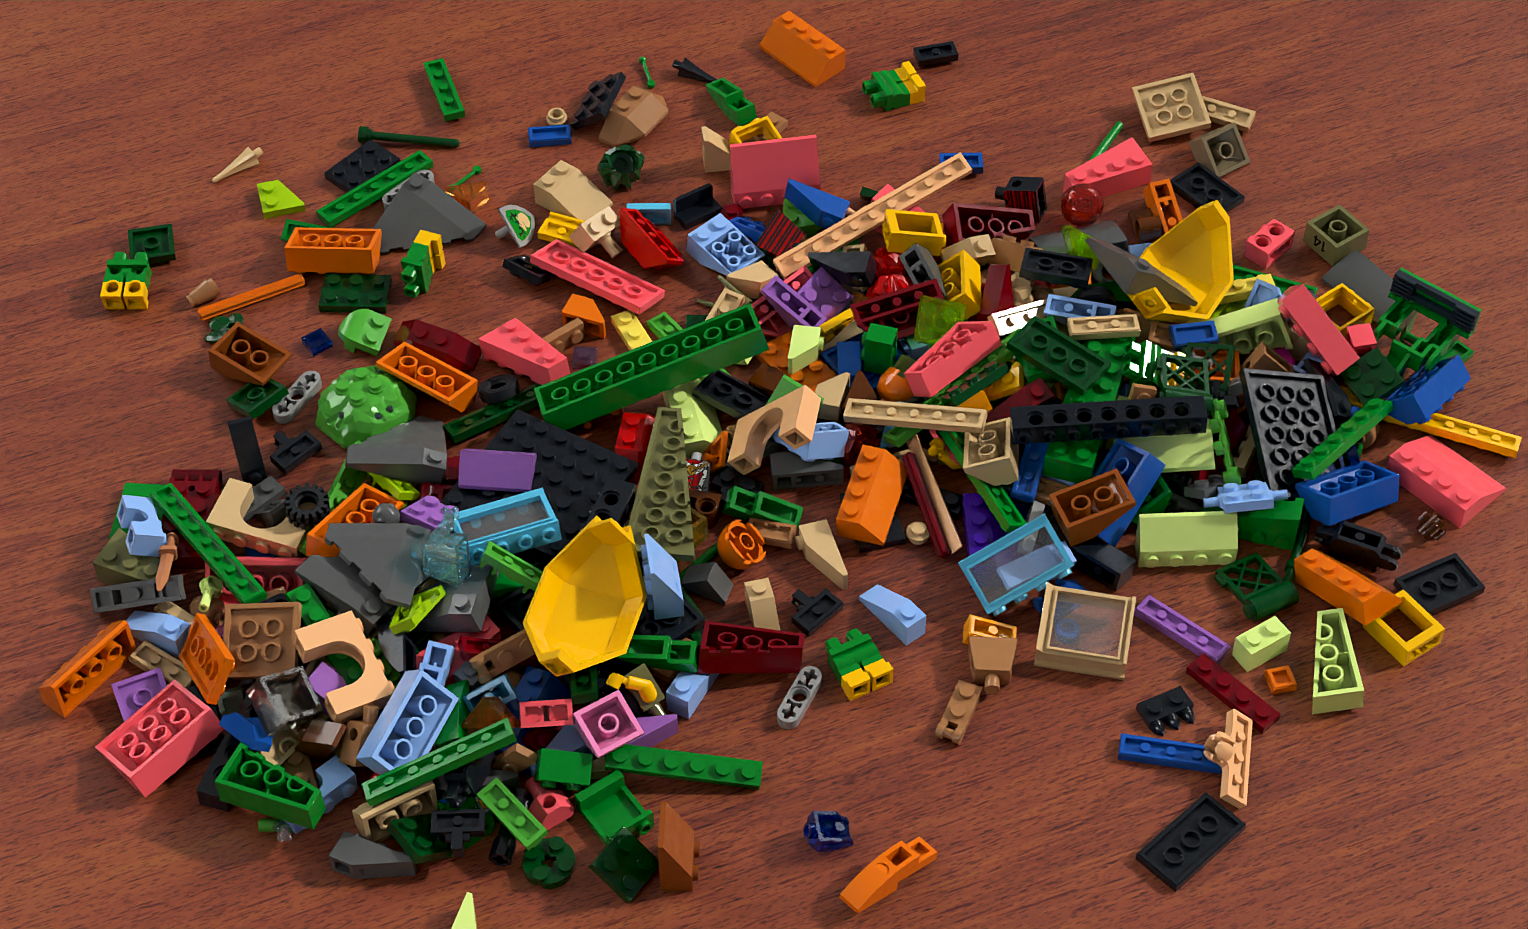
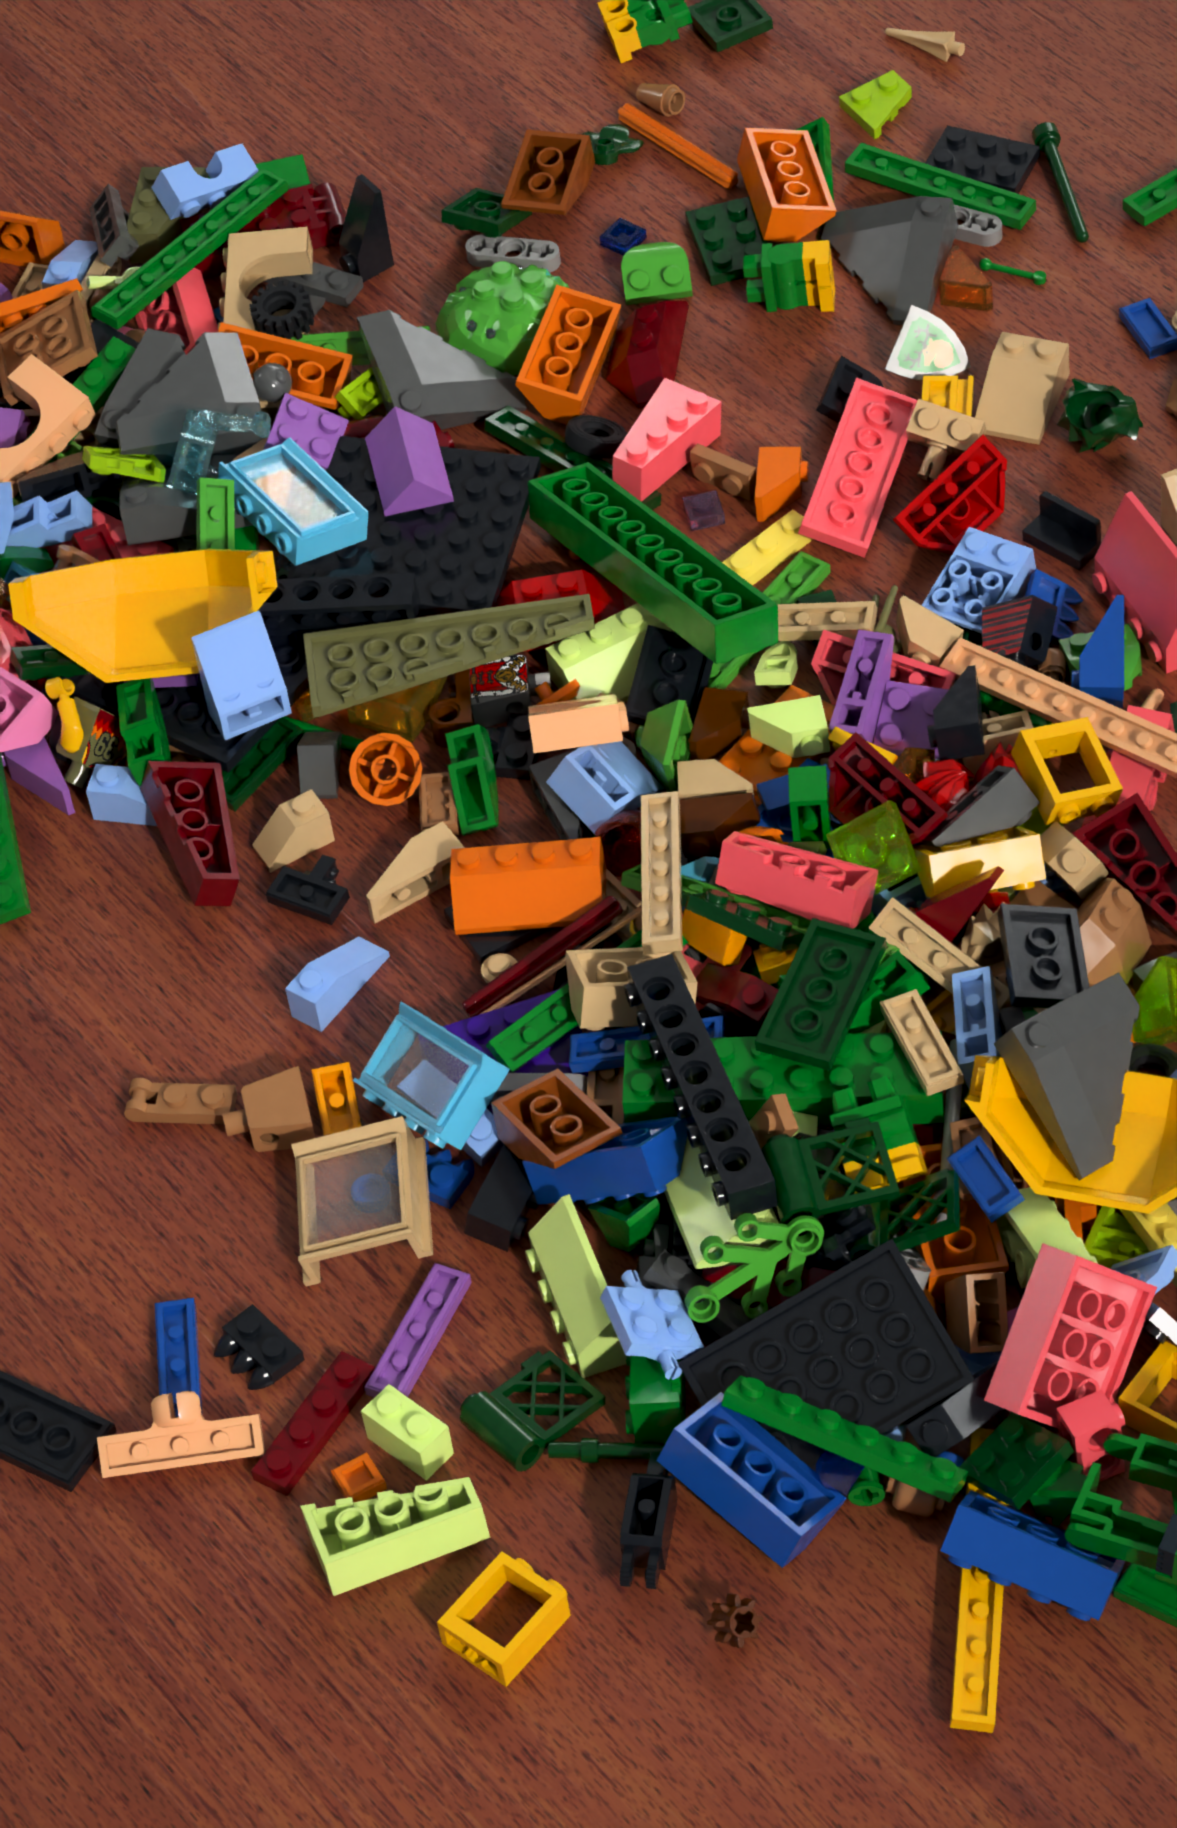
camera: 80 degrees right, 0 degrees up
(167, 555) = (168, 220): nougat sword -> none
(293, 451) = (413, 283): black hinge -> none
(655, 212) = (1029, 481): medium azure panel -> none
(732, 211) = (1076, 575): dark red plate -> none
(799, 687) = (143, 910): light grey beam -> none
(857, 664) = (226, 963): hips -> none
(1343, 586) = (548, 1511): orange slope -> none
(1441, 584) = (614, 1656): black plate -> none
(1443, 479) = (861, 1627): coral slope -> none

